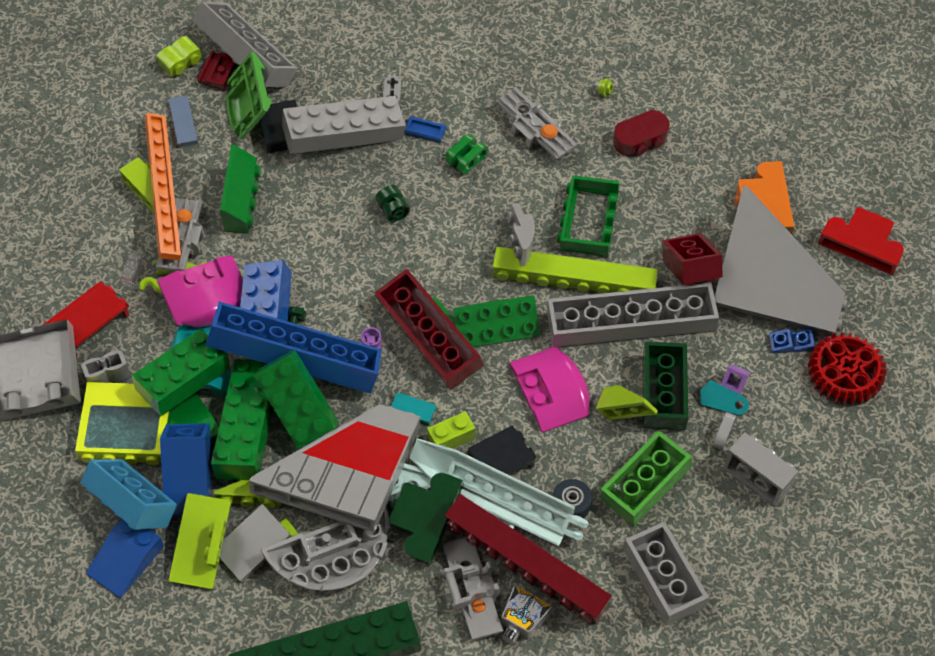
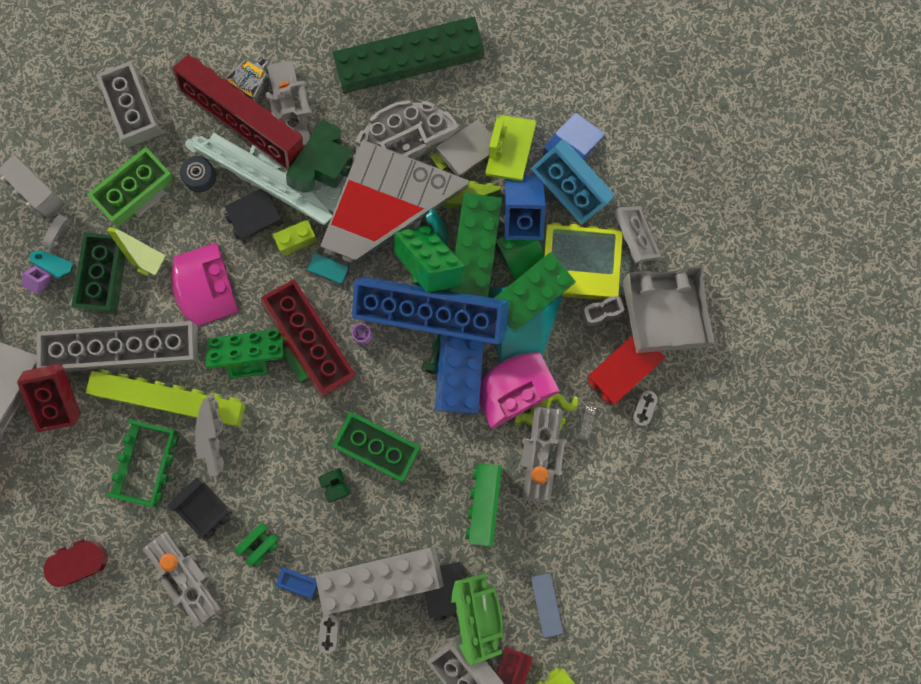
camera: 175 degrees left, 20 degrees up
(58, 450) = (637, 234): none -> light grey plate
(66, 285) = (649, 409): none -> light grey beam
(137, 178) = (584, 525): lime slope -> none
(162, 187) = (562, 511): orange plate -> none
(286, 446) = (438, 225): none -> teal piece
(350, 235) = (376, 447): none -> green brick
(525, 182) = (201, 508): none -> black panel
(605, 87) = (103, 626): lime plate -> none

